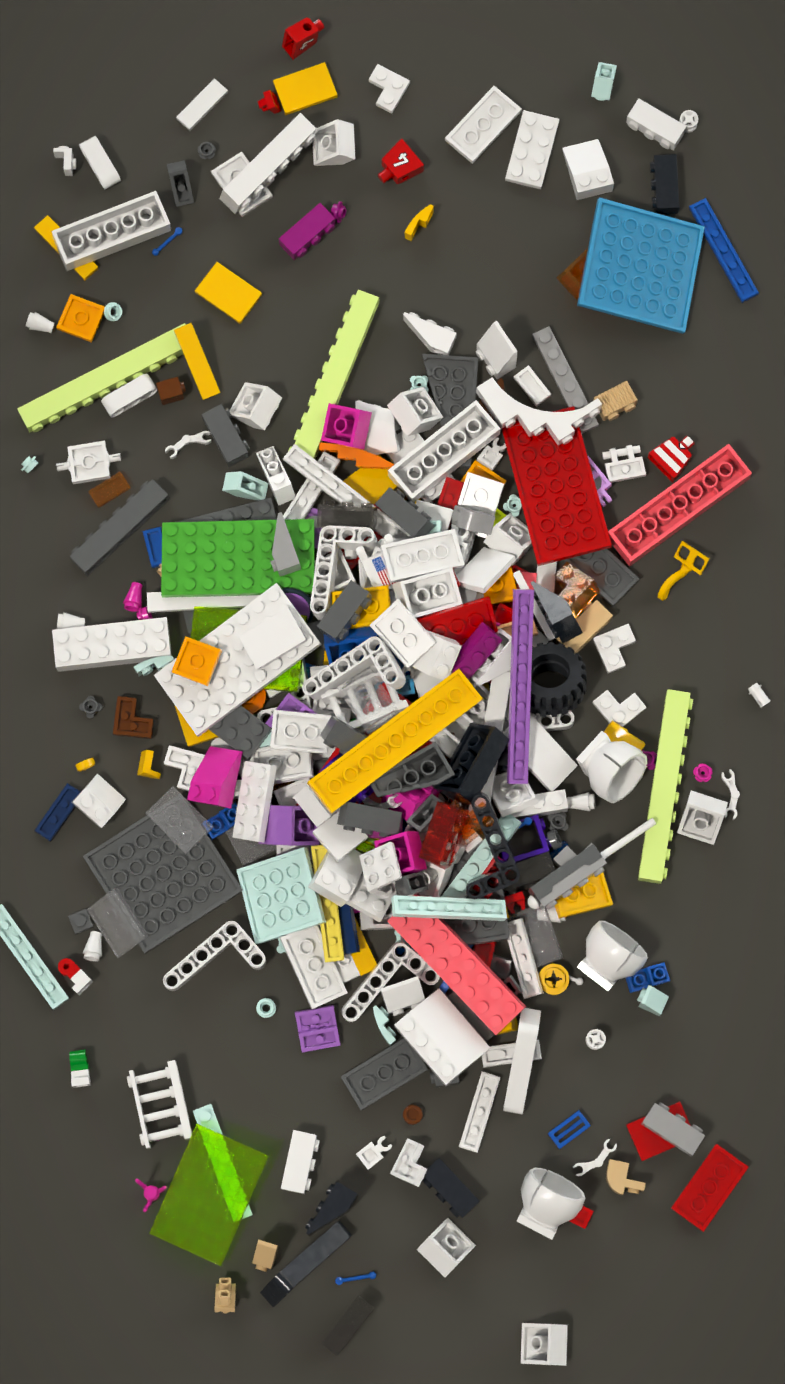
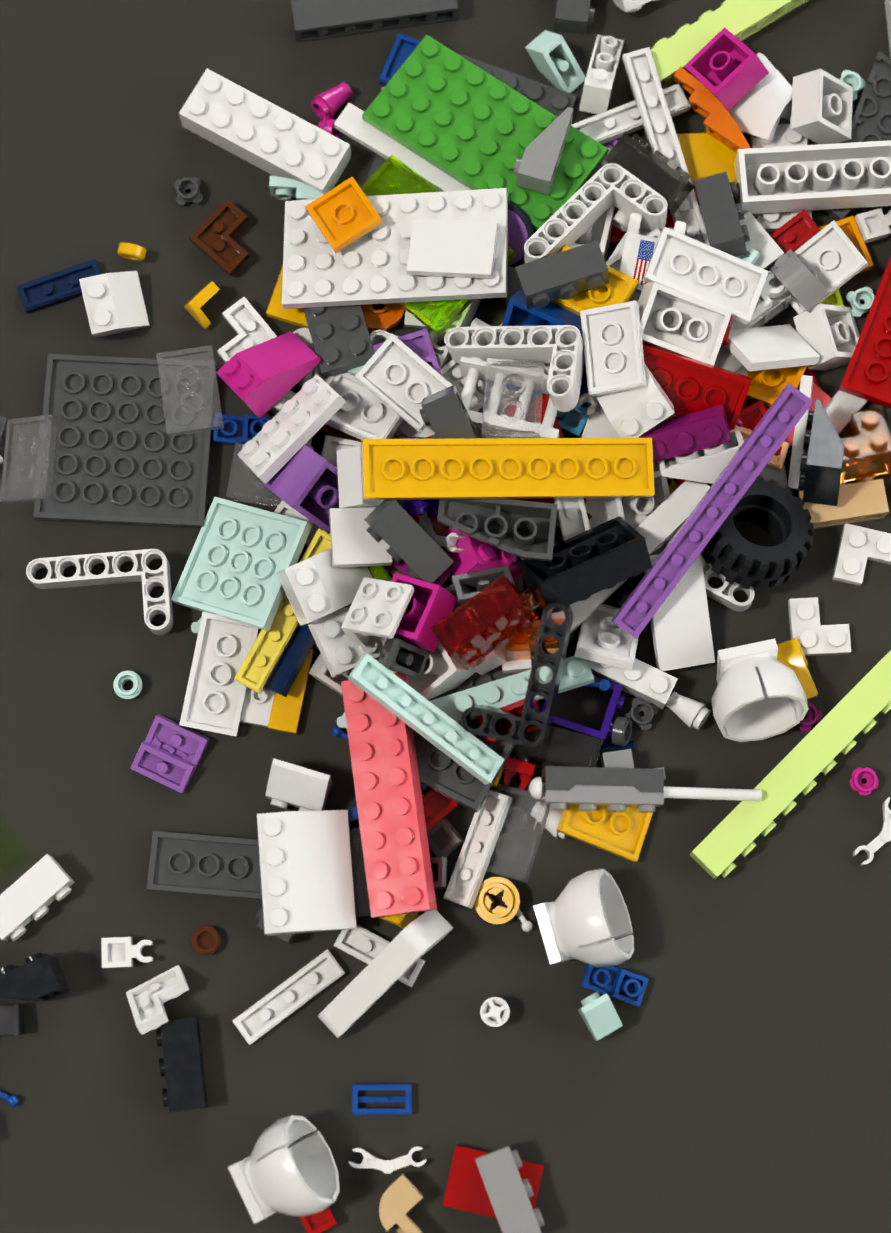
camera: 35 degrees right, 0 degrees up
(69, 621) = (234, 72): white cone -> none
(381, 1020) = (252, 798): light aqua slope -> none
(385, 976) = (293, 748): white beam -> none
(446, 1247) = (125, 1134): white slope -> none
(702, 817) = (824, 835): white slope -> none

